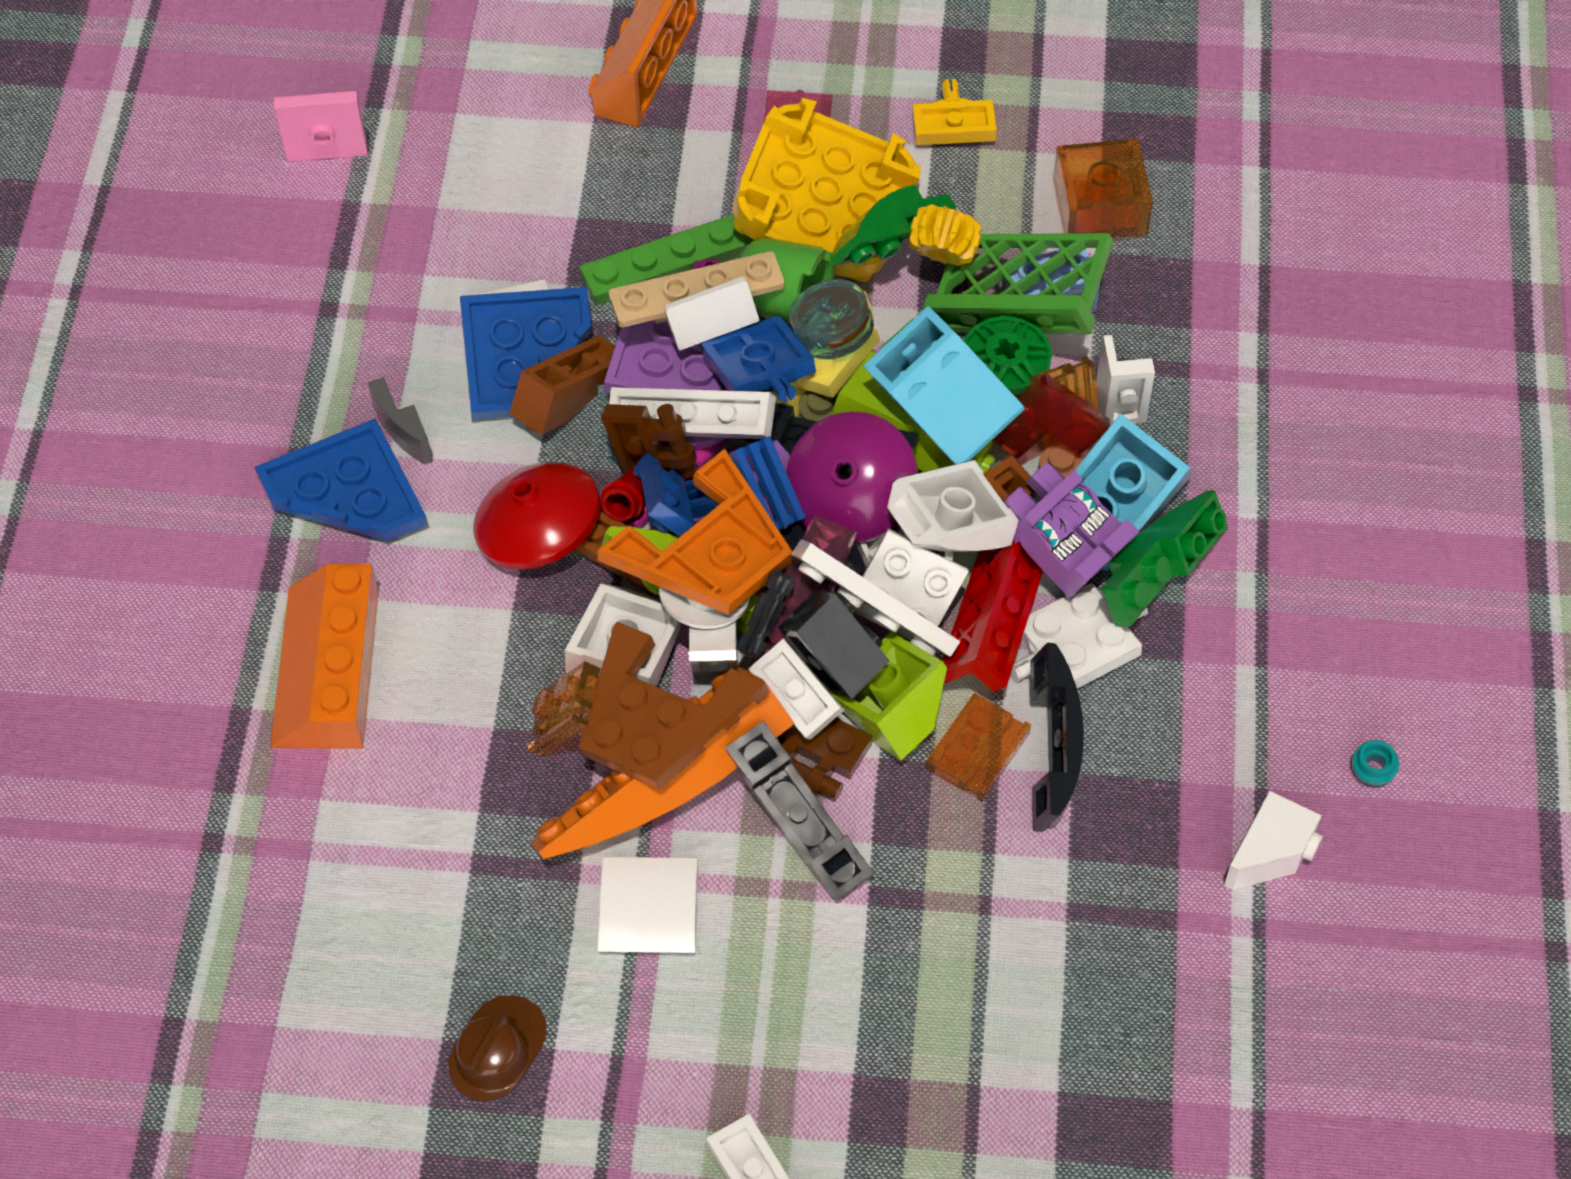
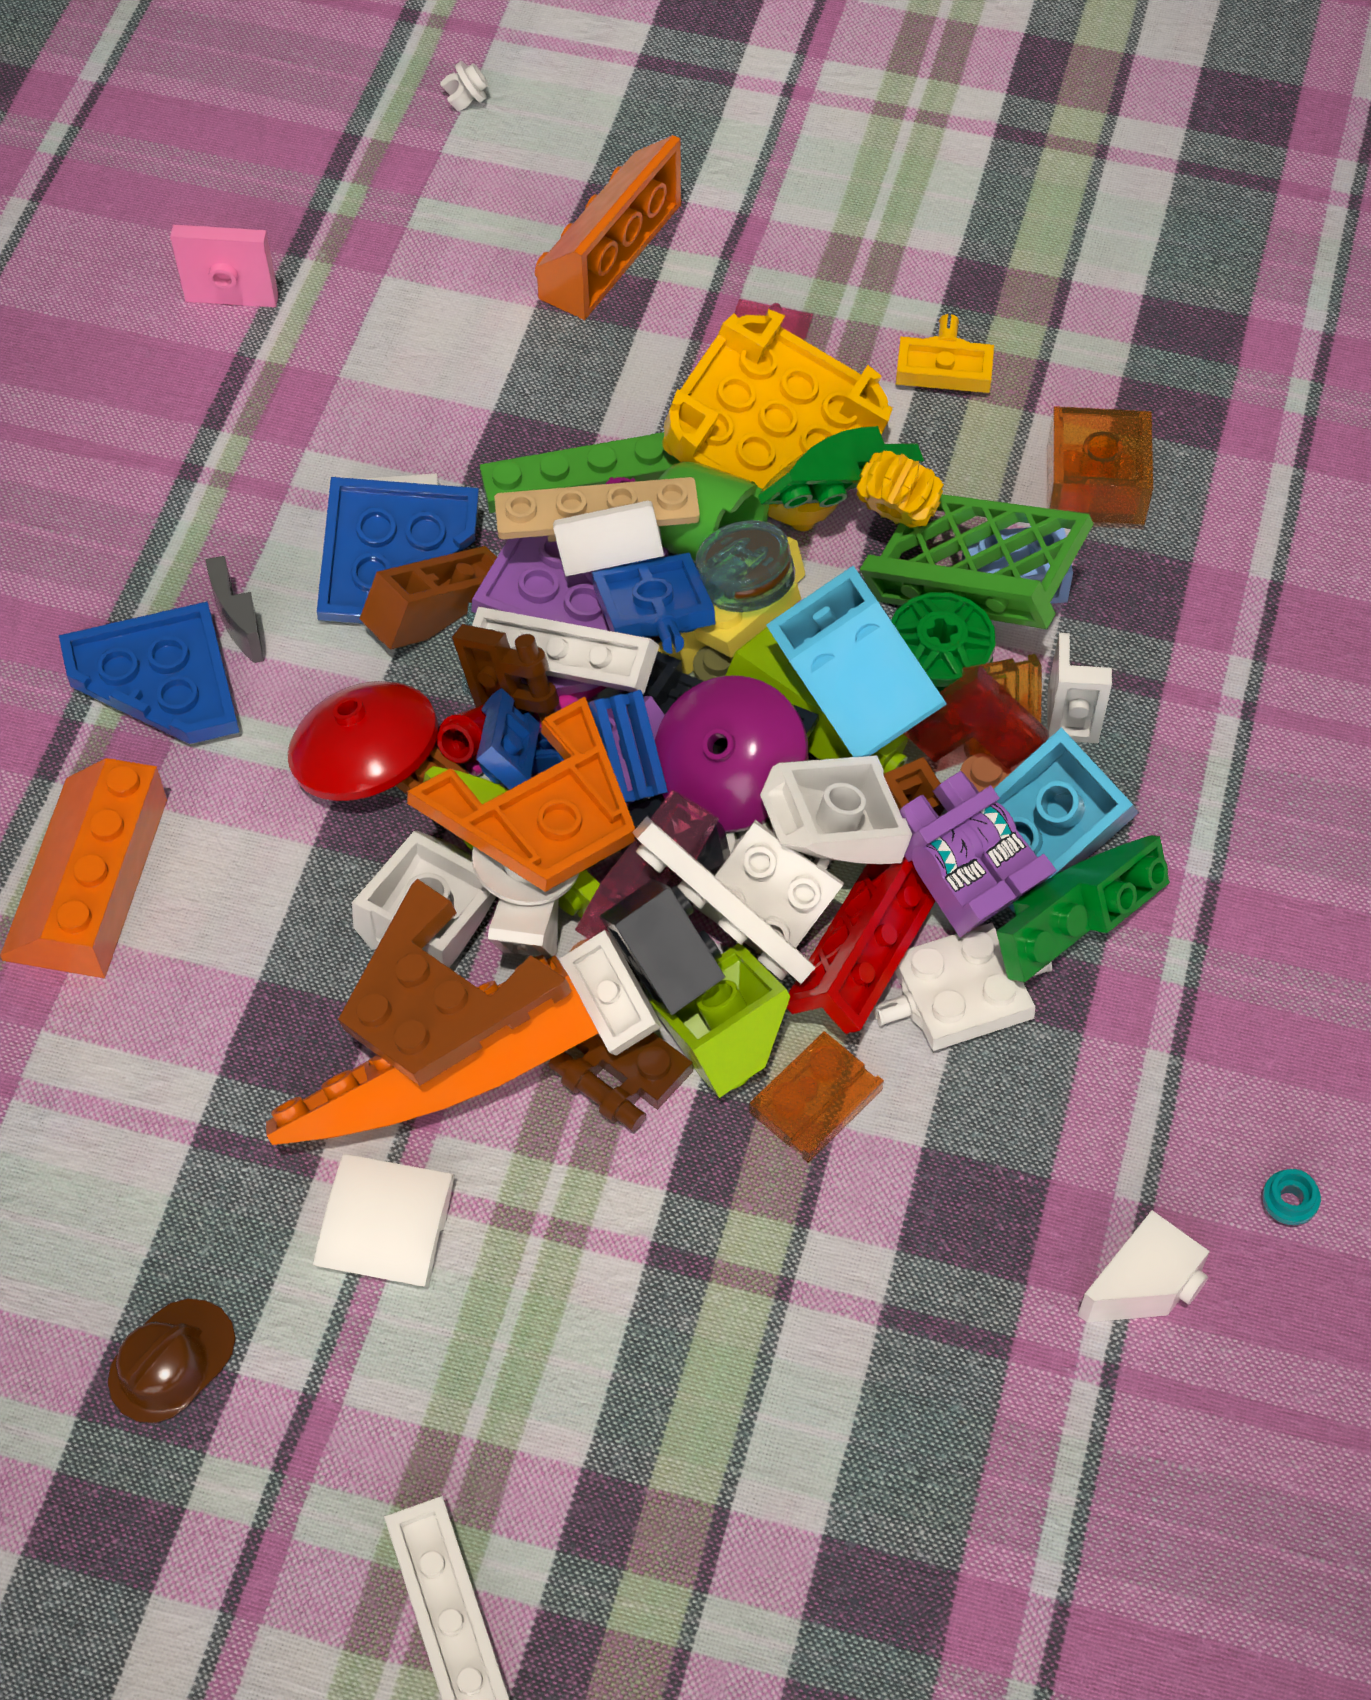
camera: 10 degrees right, 0 degrees up
(562, 708) = (334, 967): clear orange plate -> none
(765, 614) = (590, 898): black axle -> none
(798, 812) = (583, 1139): slope -> none
(1054, 685) = (920, 1039): black slope -> none

